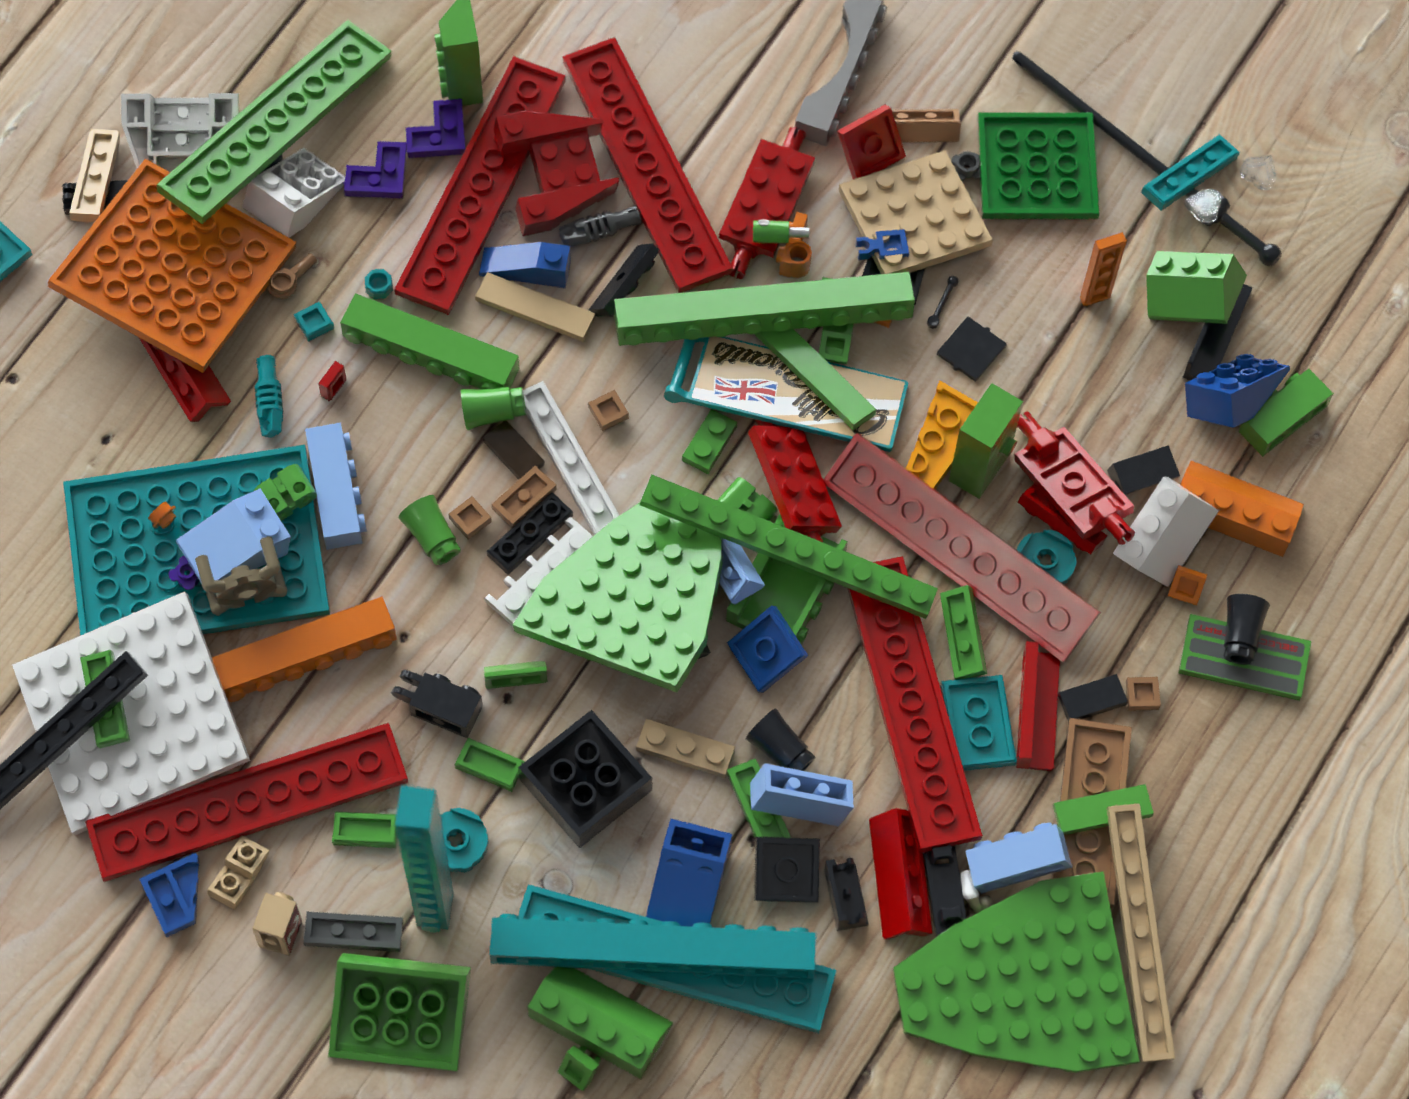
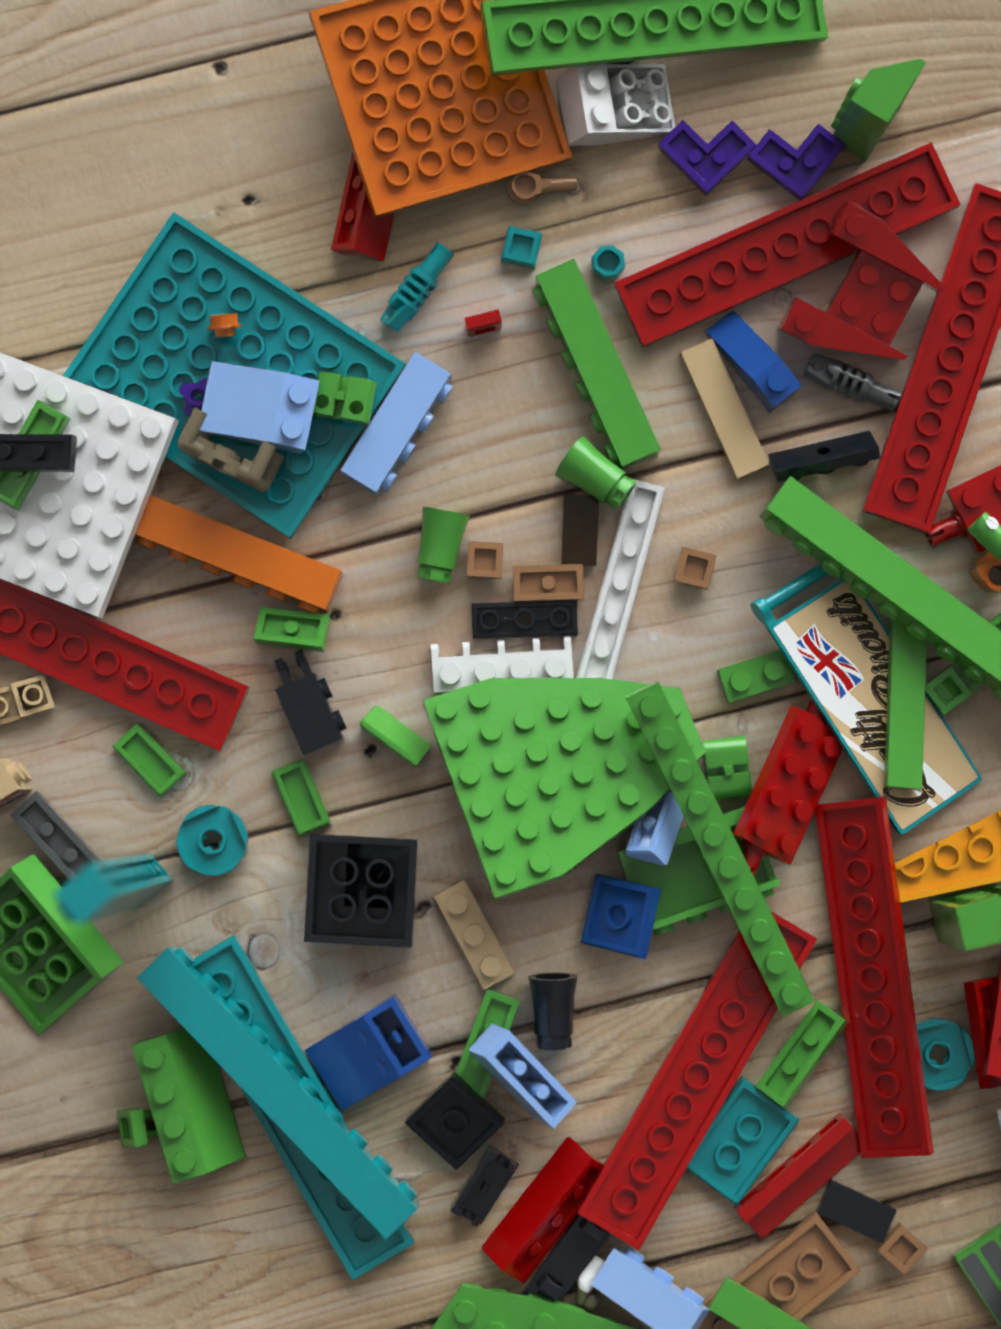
camera: 45 degrees right, 20 degrees up
(384, 663) = (292, 629): none -> bright green plate

